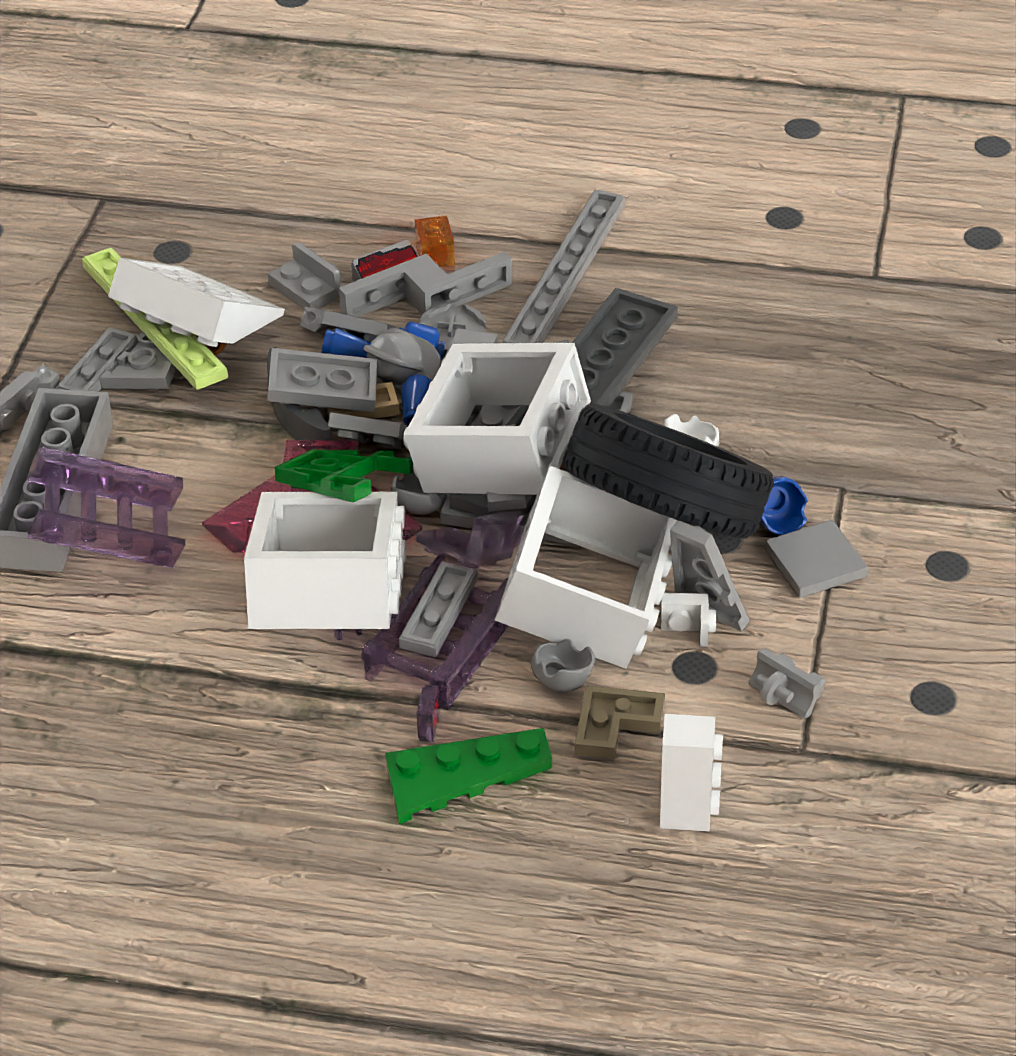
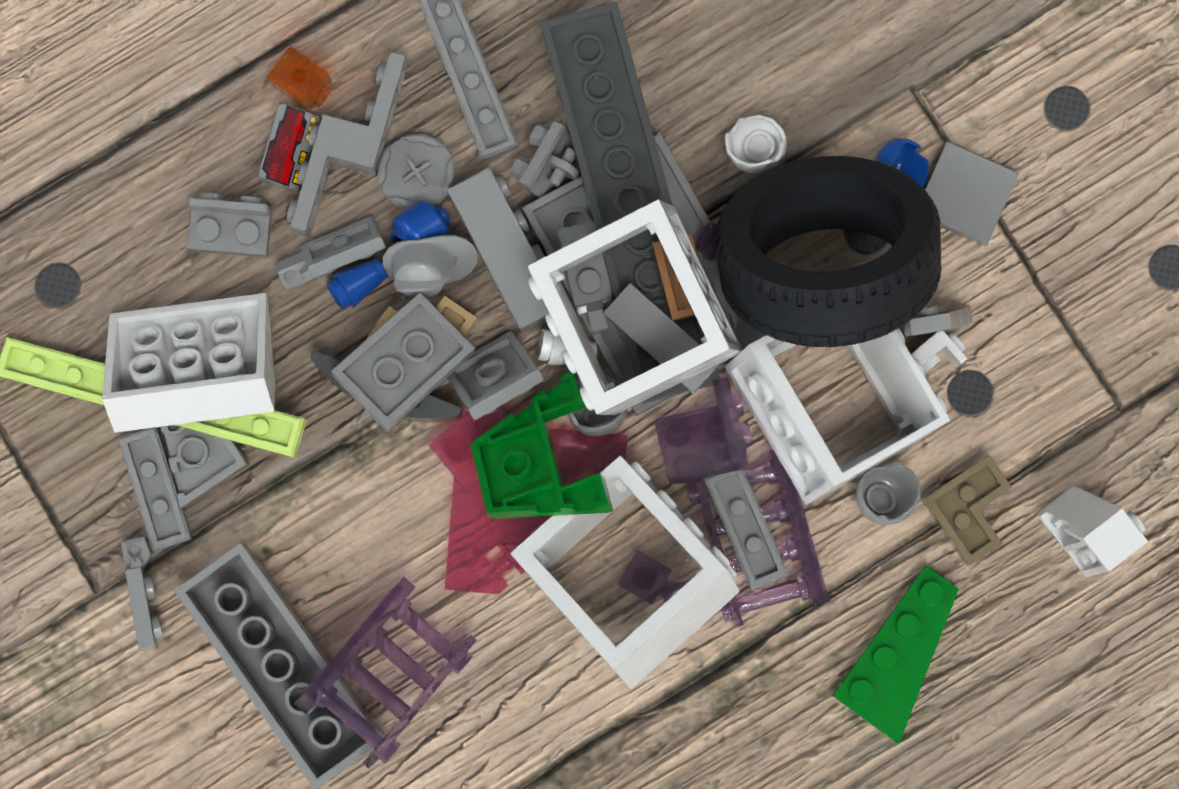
camera: 40 degrees left, 40 degrees up
(412, 395) = (482, 296): blue cone -> none
(428, 713) = (830, 631): clear purple tile -> none
(785, 683) = (1065, 365): light grey hips -> none

